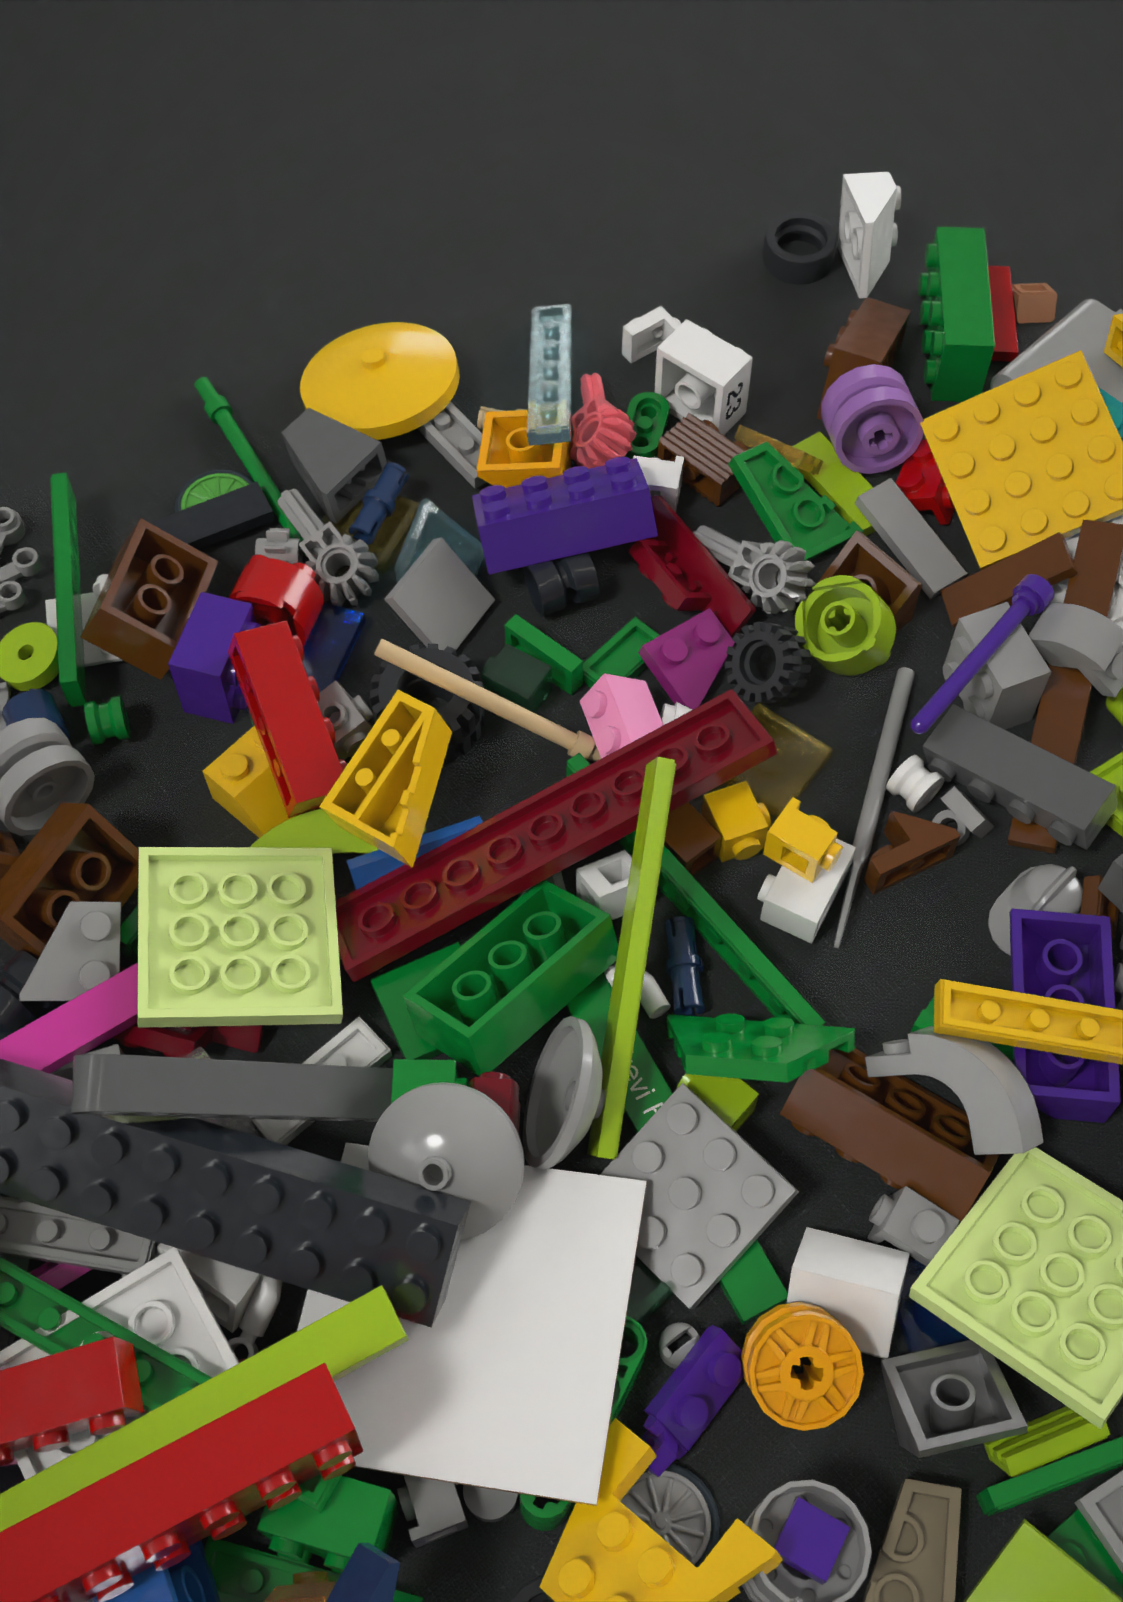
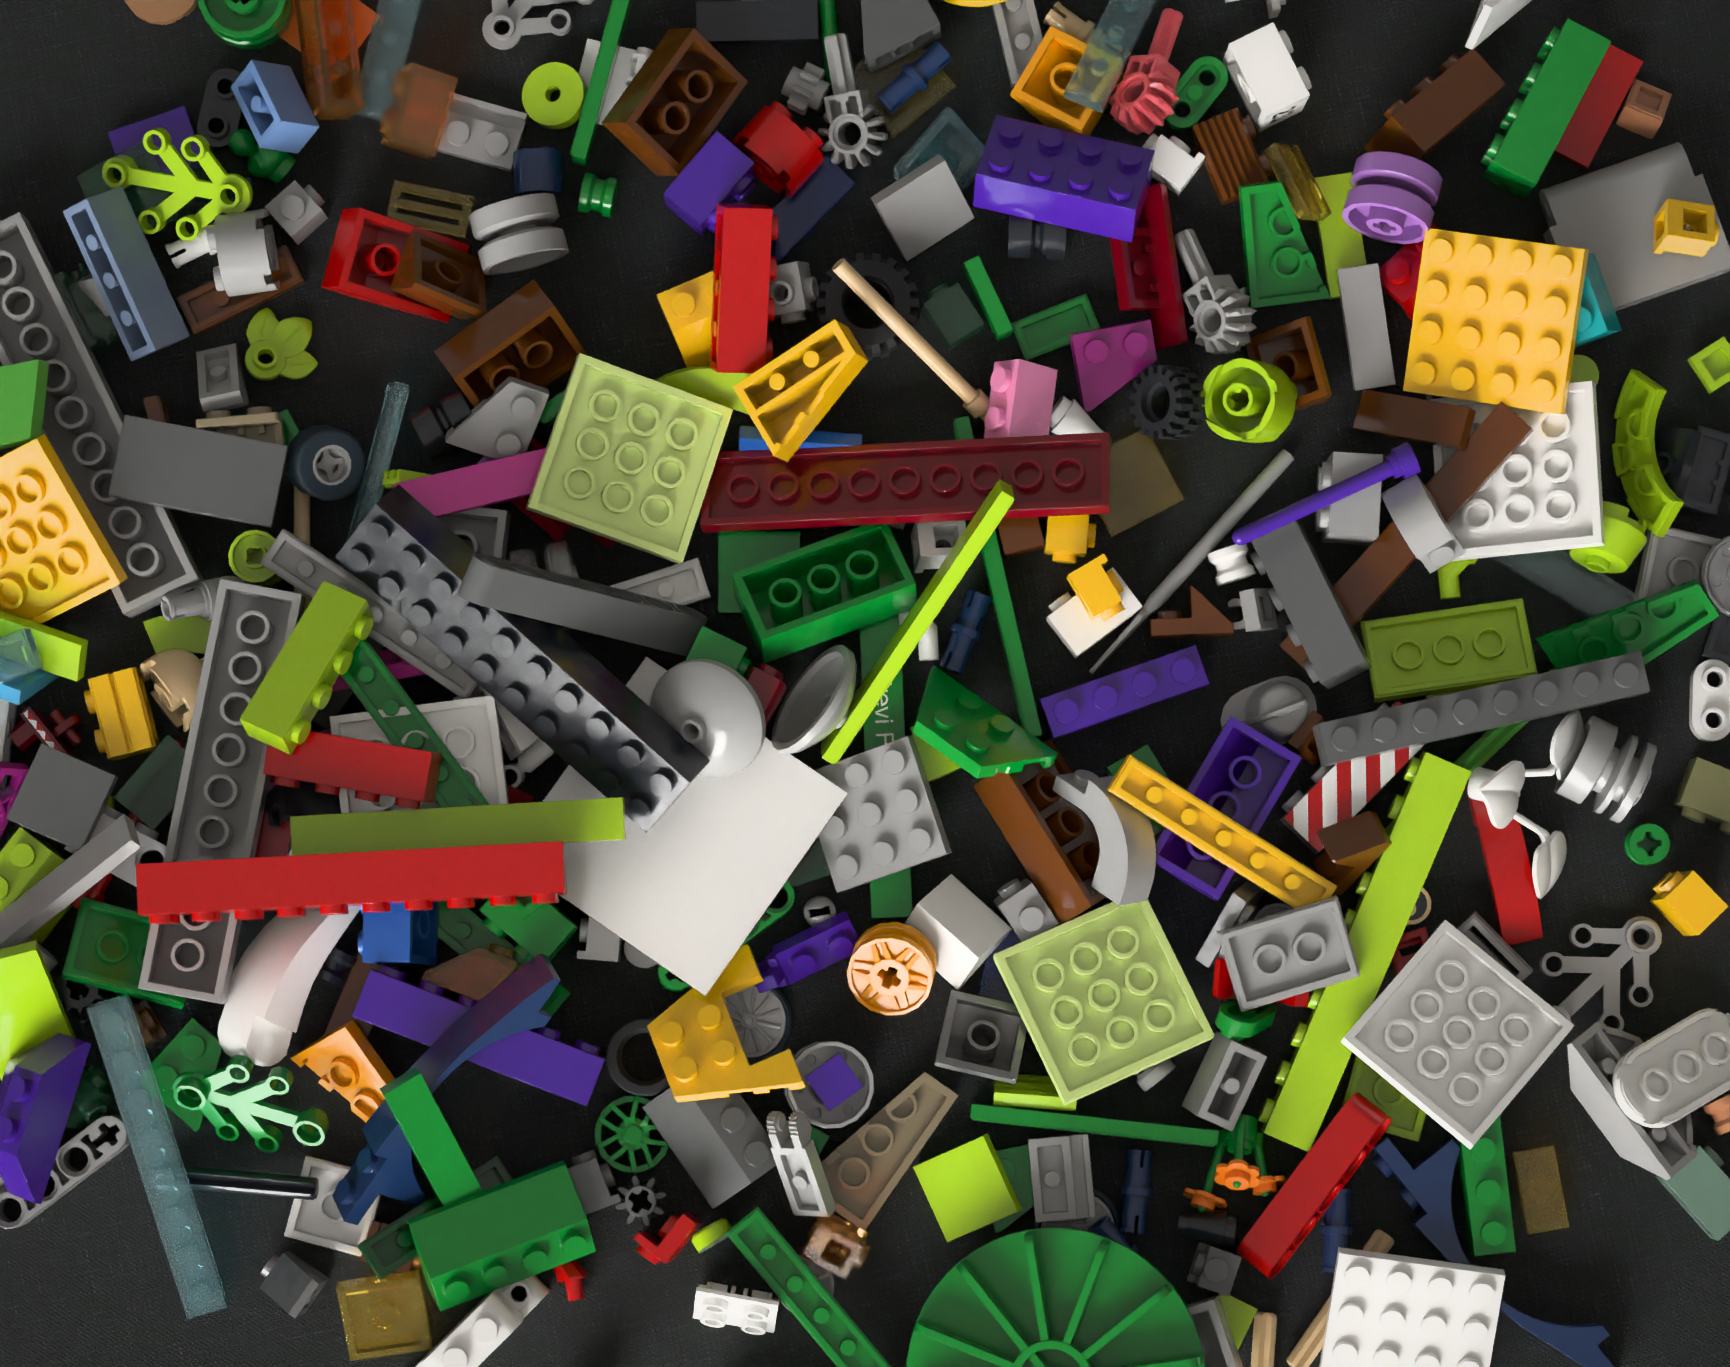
camera: 25 degrees right, 25 degrees up
(884, 946) = (1123, 692): none -> dark purple brick

